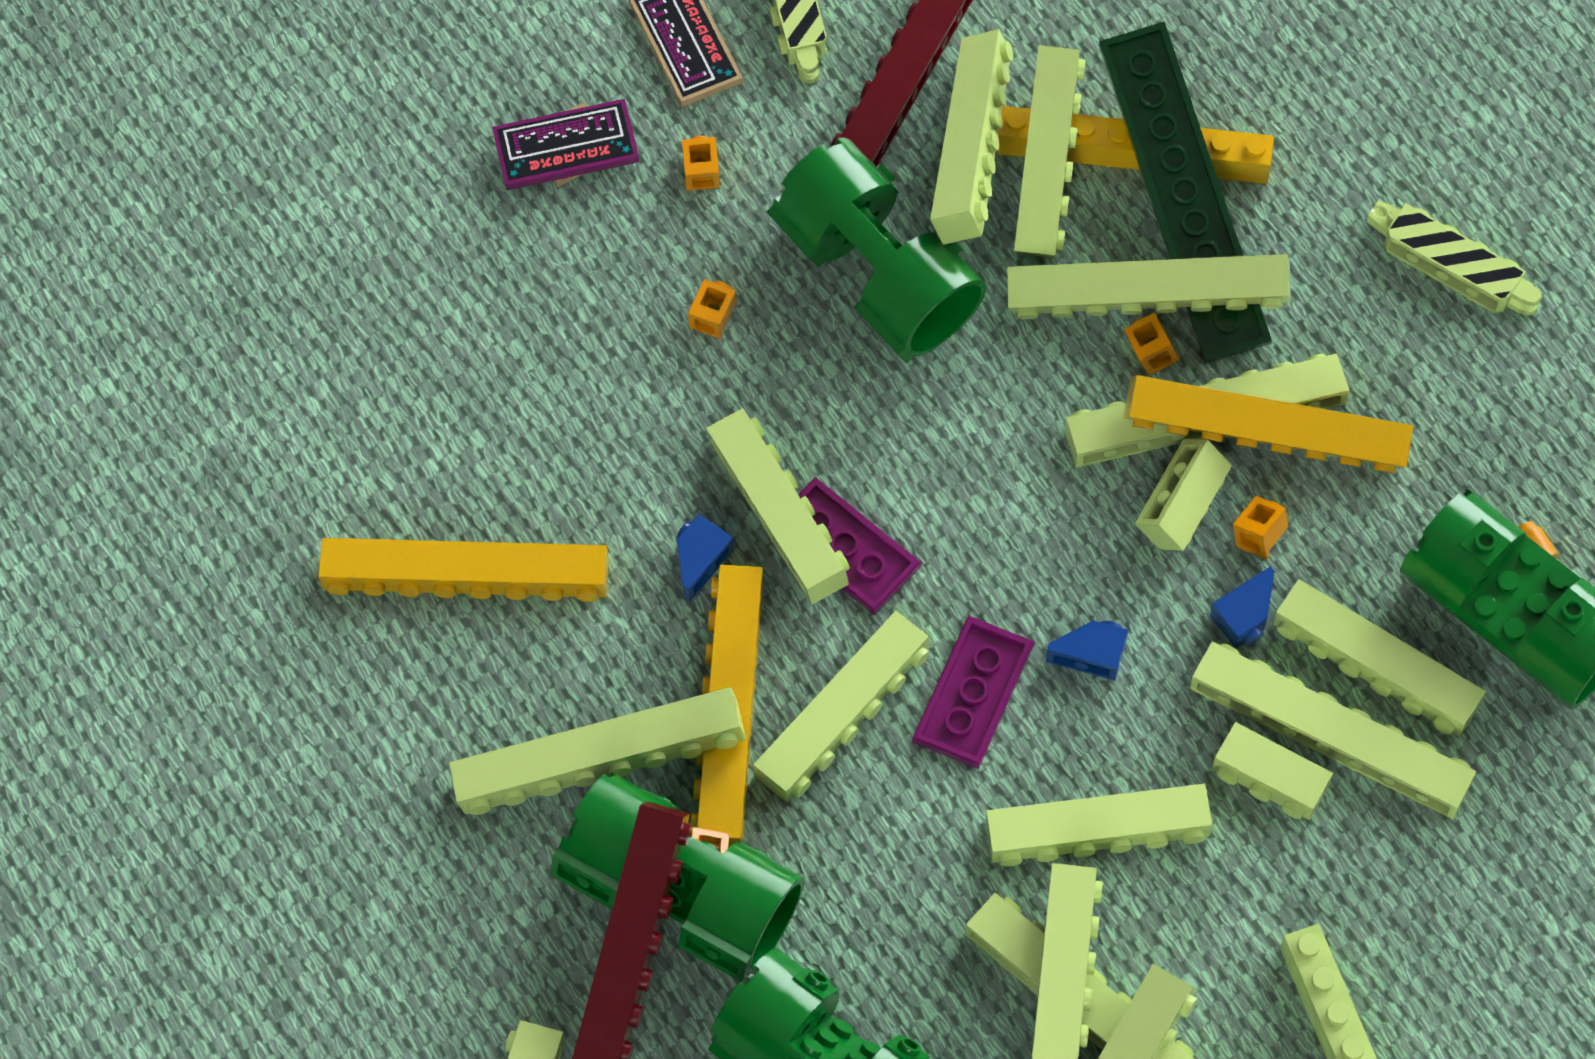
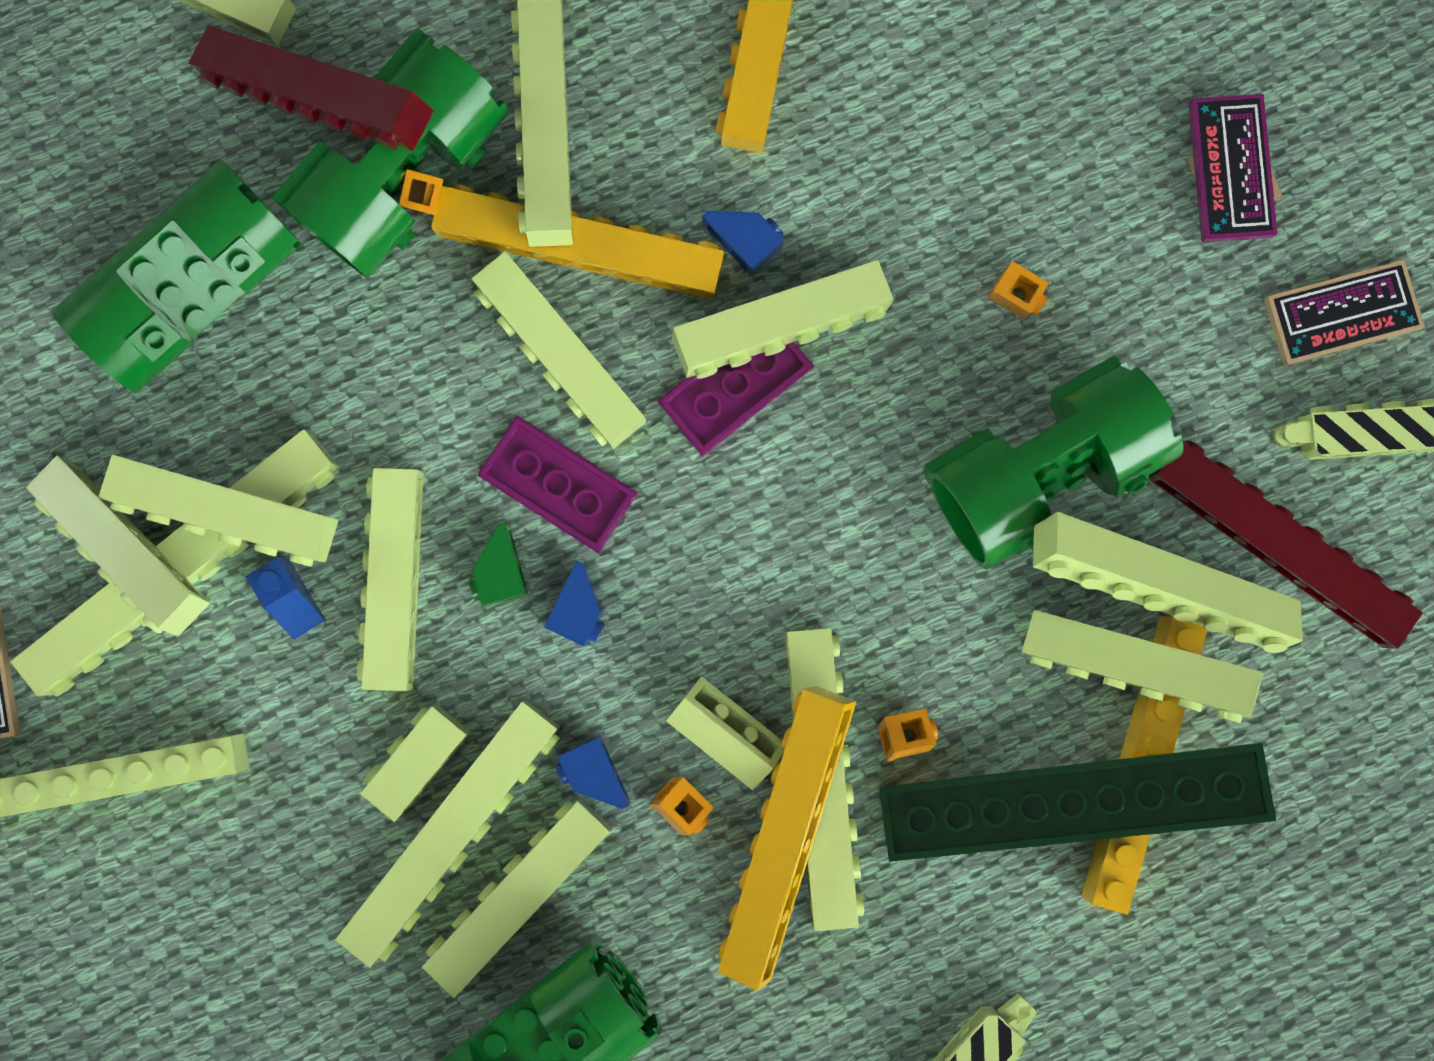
camera: 90 degrees right, 20 degrees up
(700, 163) = (1203, 297): light orange brick -> none
(1068, 726) = (498, 570): none -> green slope
(1134, 923) = (285, 597): none -> blue slope
(1149, 284) = (965, 746): yellowish green brick -> none

